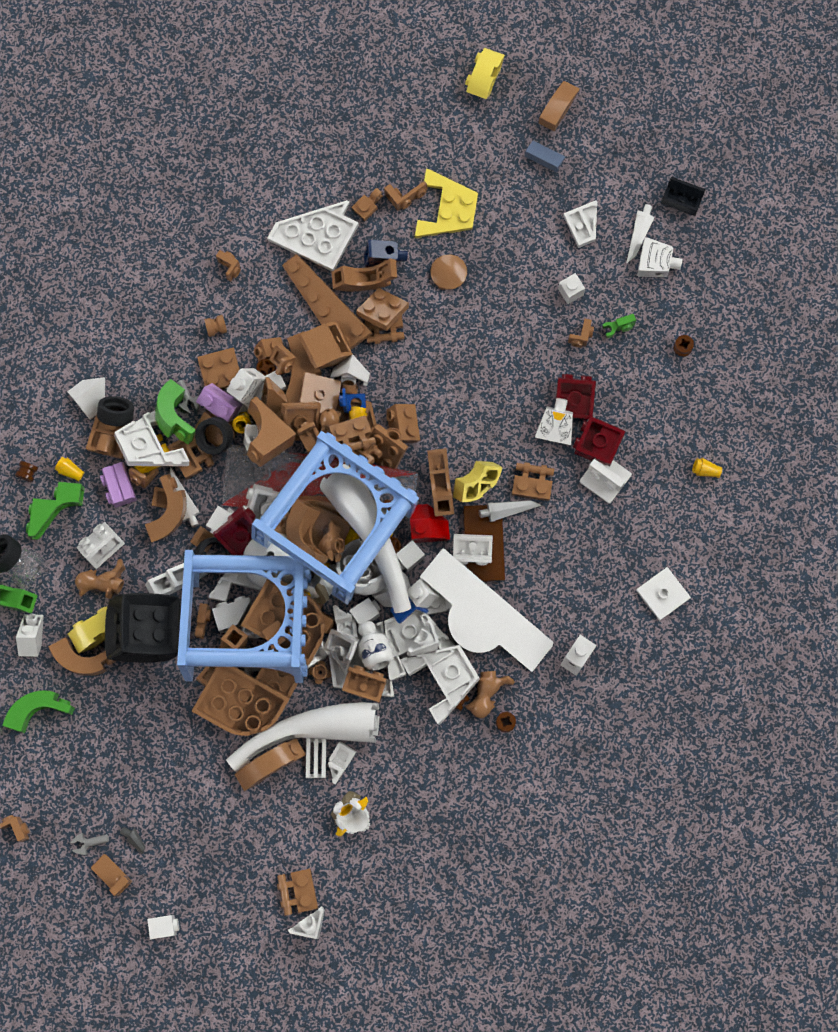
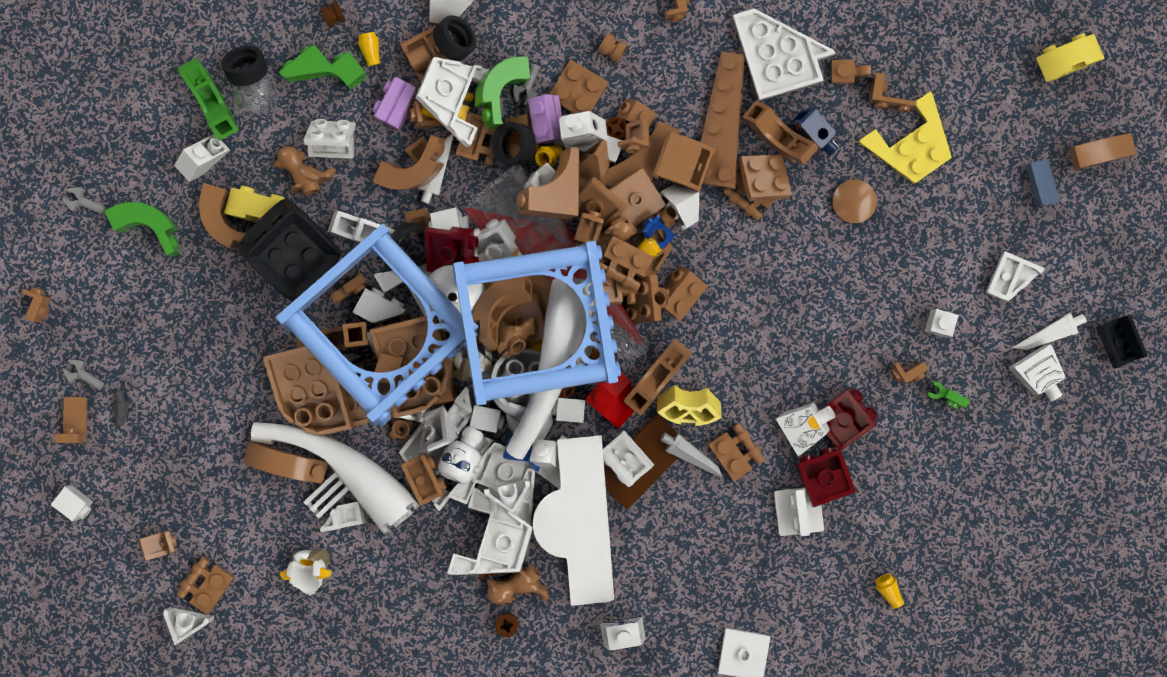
camera: 40 degrees right, 10 degrees up
(242, 896) = (157, 545): none -> medium nougat bracket
(682, 349) = (978, 466): reddish brown wheel -> none

